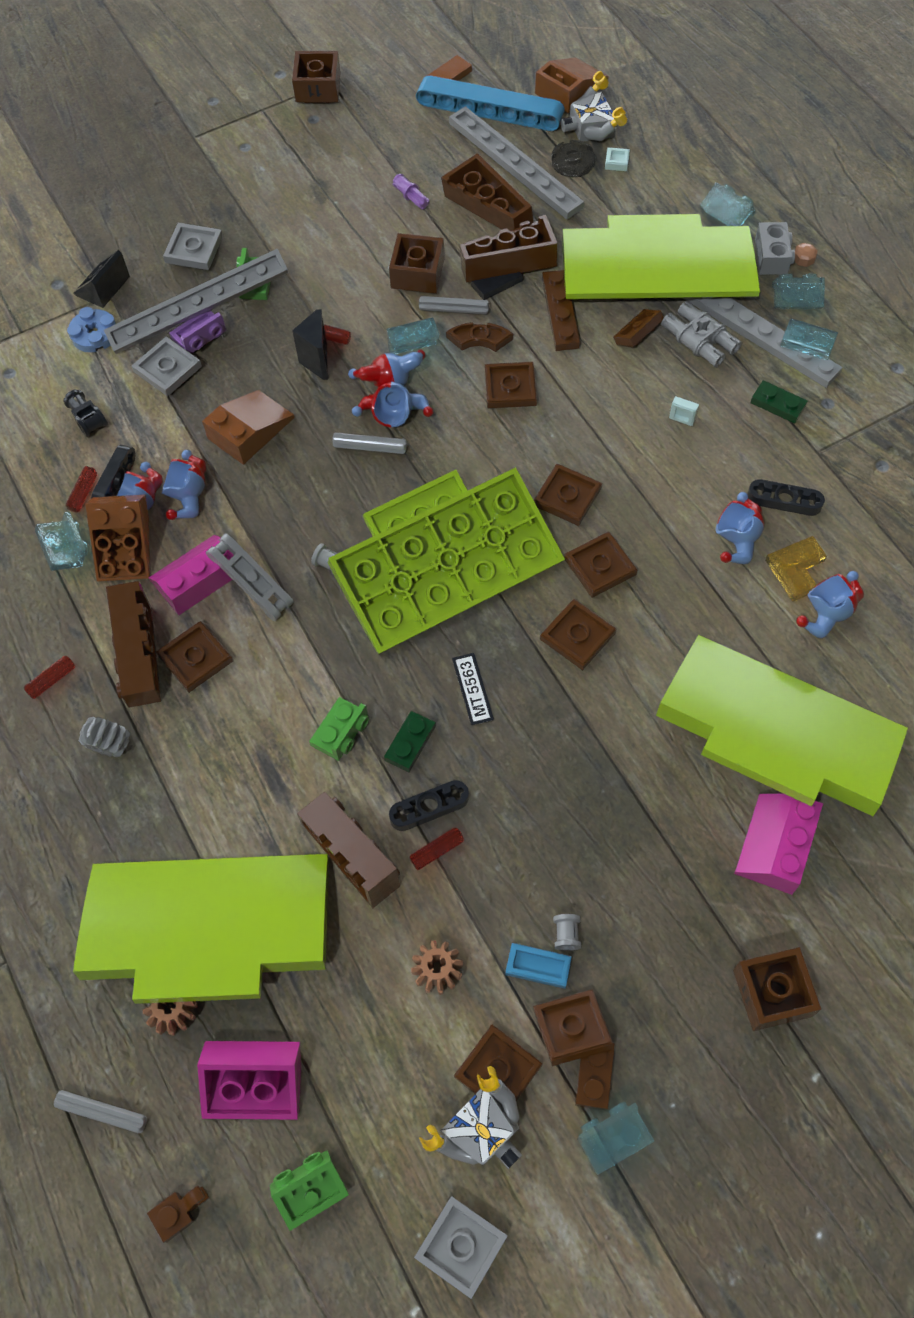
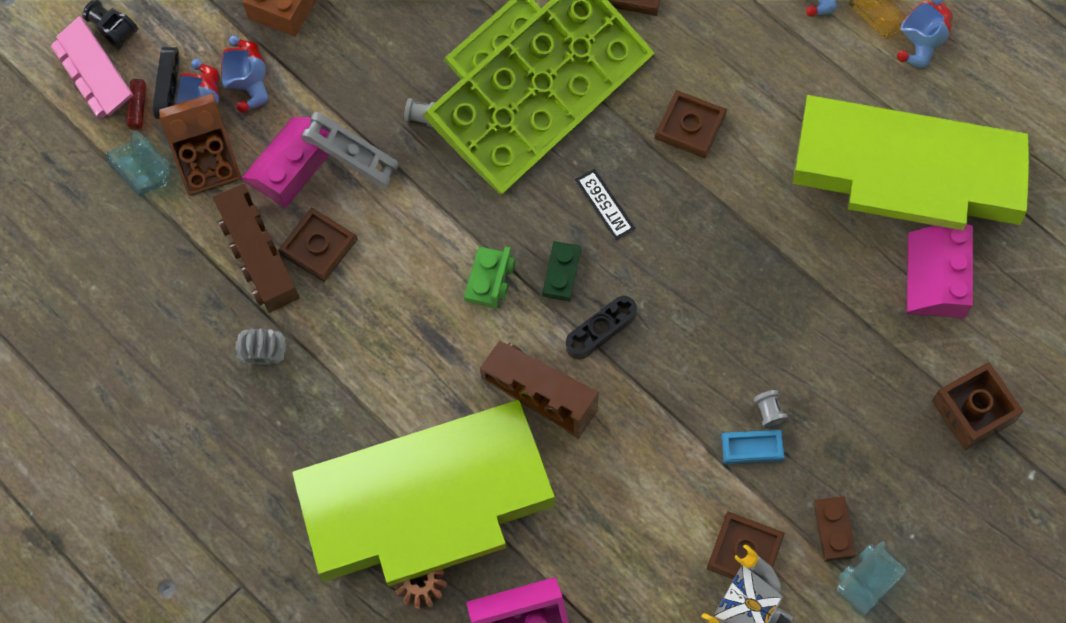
camera: 15 degrees left, 5 degrees up
(49, 677) = (177, 303): clear red axle -> none
(54, 449) = (91, 69): none -> bright pink windscreen
(427, 962) = (663, 463): nougat gear -> none
(436, 848) = (622, 365): clear red axle -> none
(572, 1027) = (802, 492): reddish brown tile -> none
(600, 564) = (691, 49): reddish brown tile -> none

